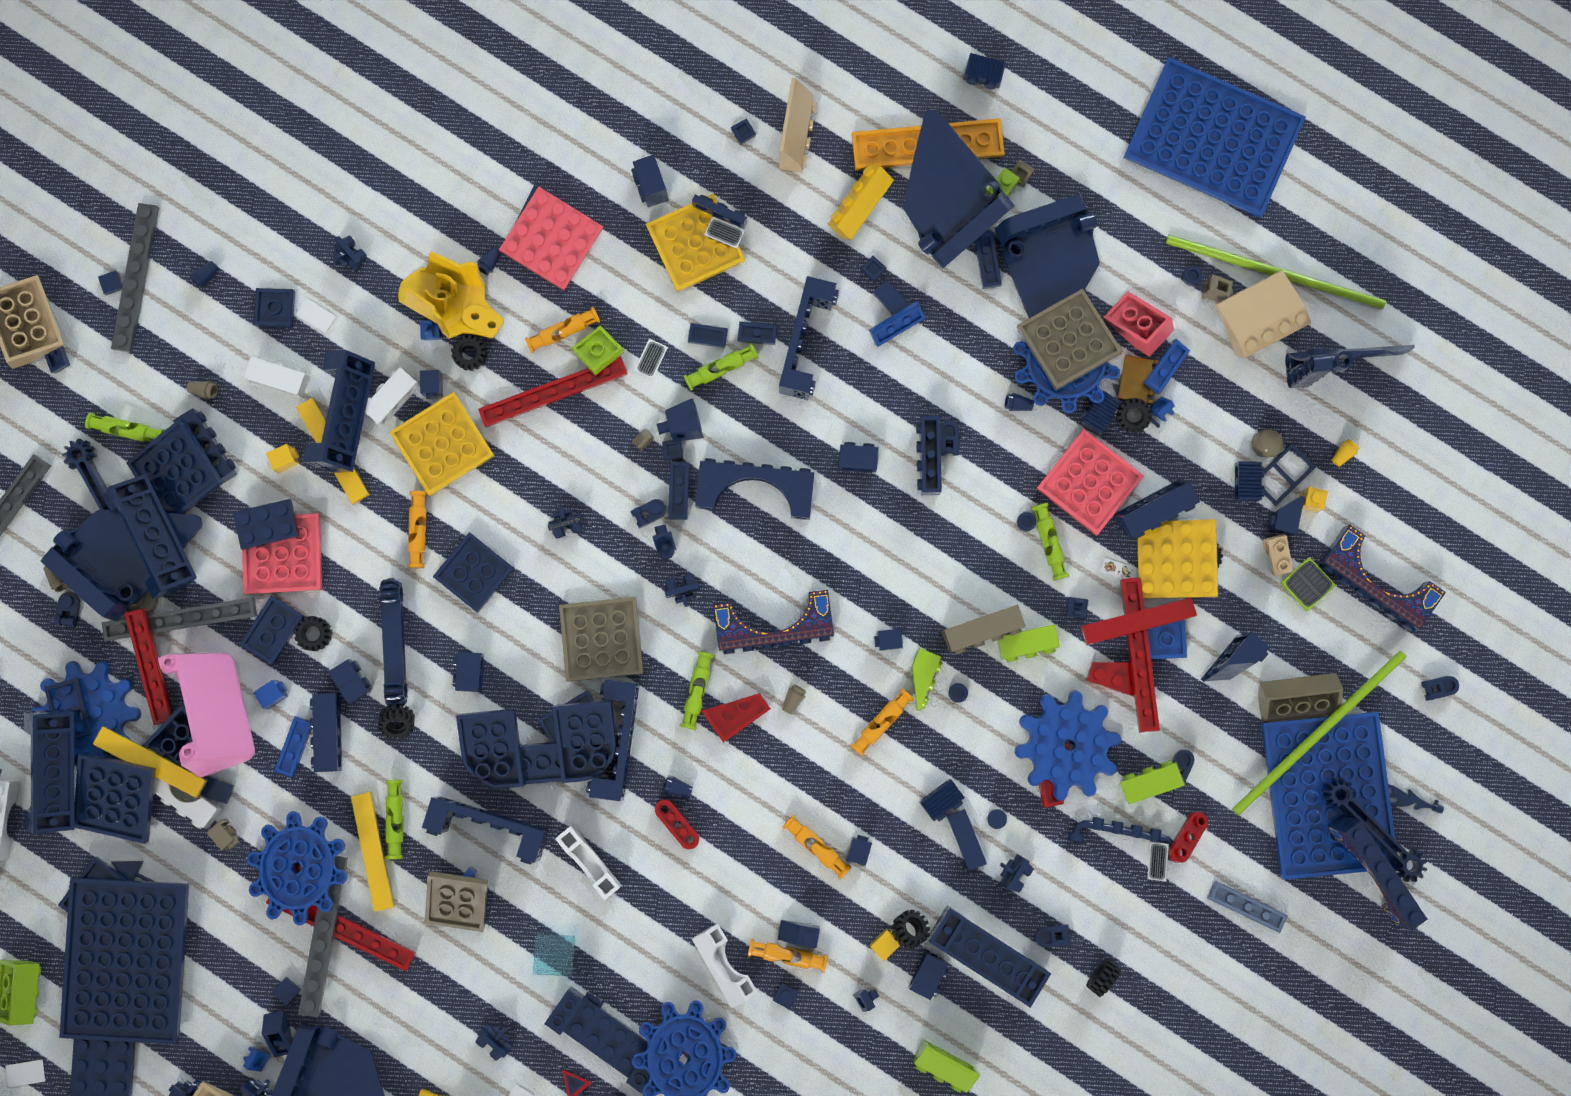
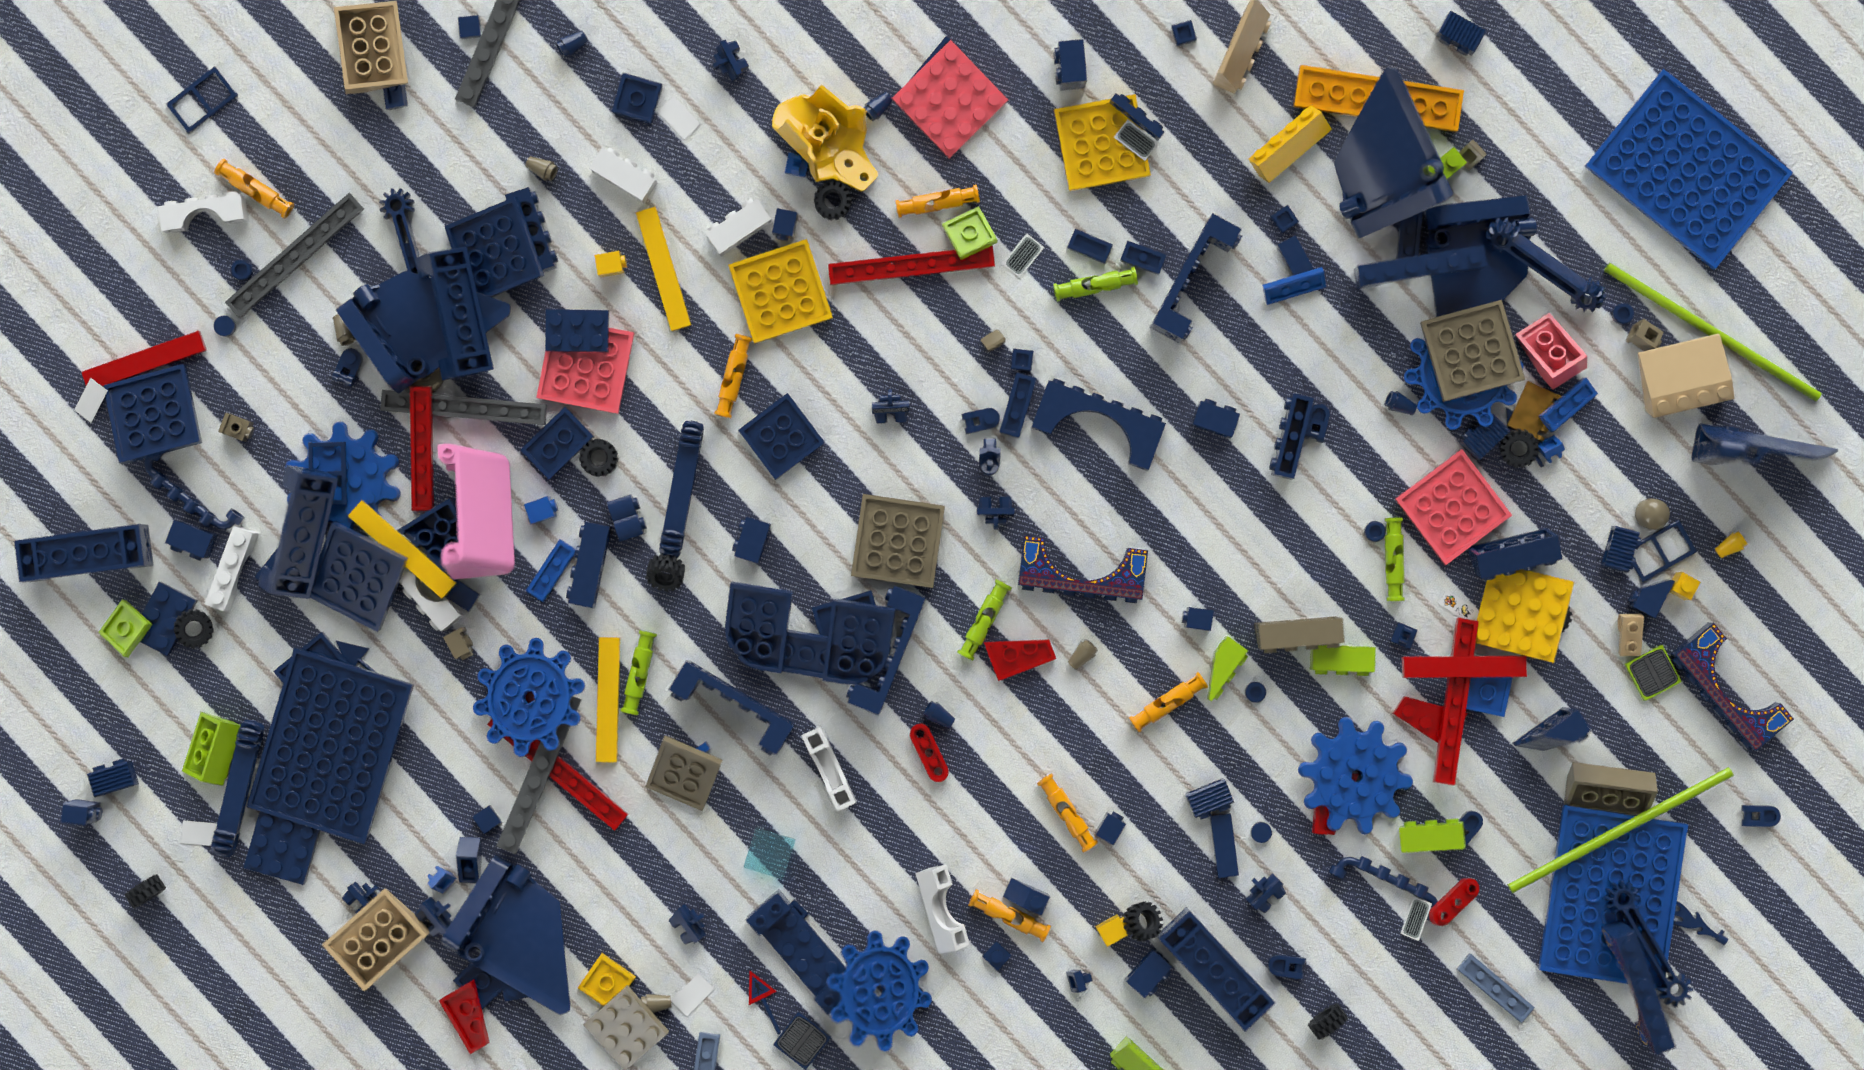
camera: 15 degrees right, 5 degrees up
(47, 1022) = (237, 788): none -> dark blue arm
(127, 429) = (436, 182): lime piece -> none
(345, 412) = (690, 235): dark blue plate -> none
(682, 422) = (1040, 333): dark blue torso -> none
(1033, 263) = (1420, 266): none -> dark blue arch
(1113, 249) = (1545, 265): none -> dark blue arm

